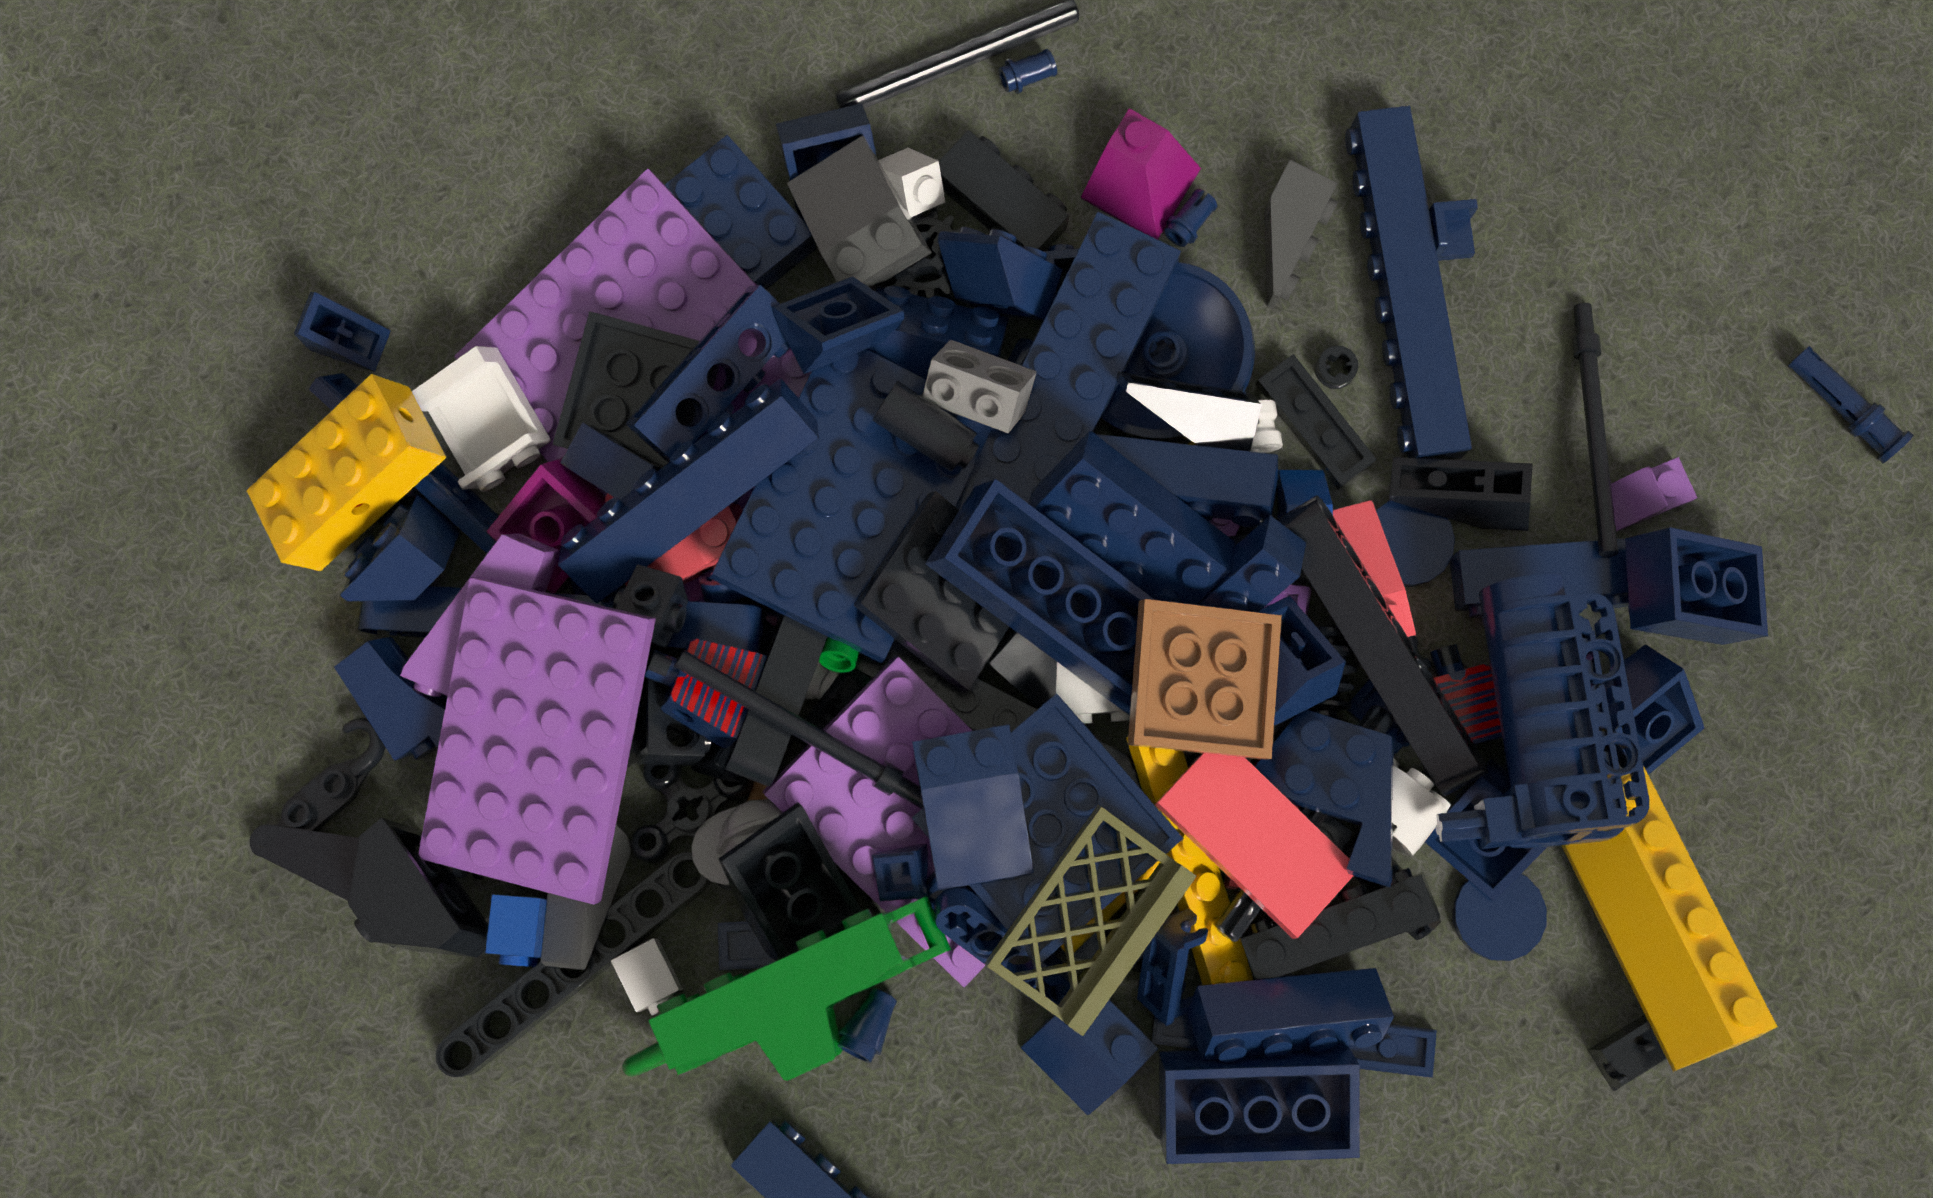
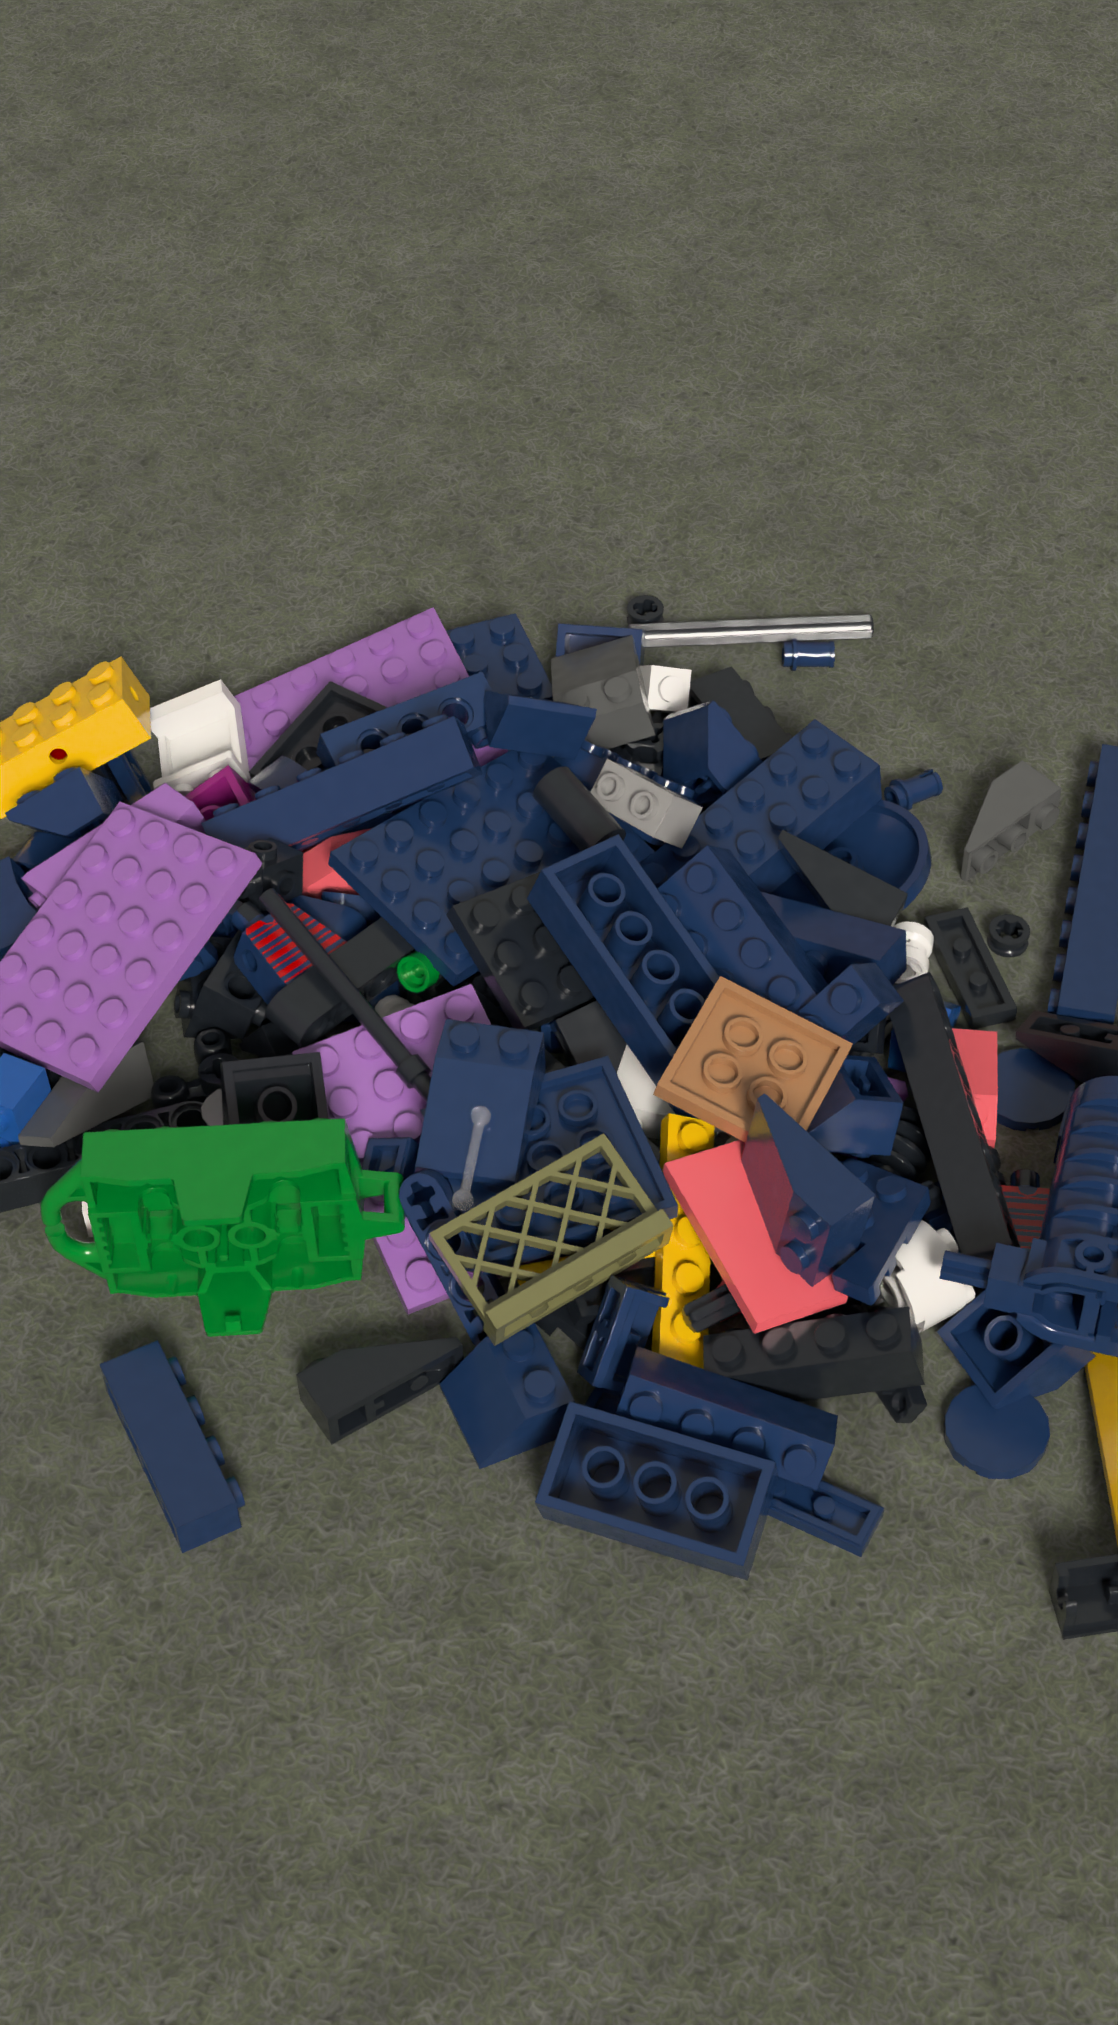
camera: 30 degrees right, 30 degrees down
(340, 333) = (108, 643): dark blue slope -> none
(834, 59) = (642, 604): none -> black bush
(867, 1028) = (294, 1311): dark blue cone -> none
(960, 1084) = (372, 1381): none -> black slope
(995, 907) = (463, 1198): none -> clear hinge
(1141, 175) = (889, 734): magenta slope -> none
(1302, 815) = (804, 1194): none -> dark blue slope

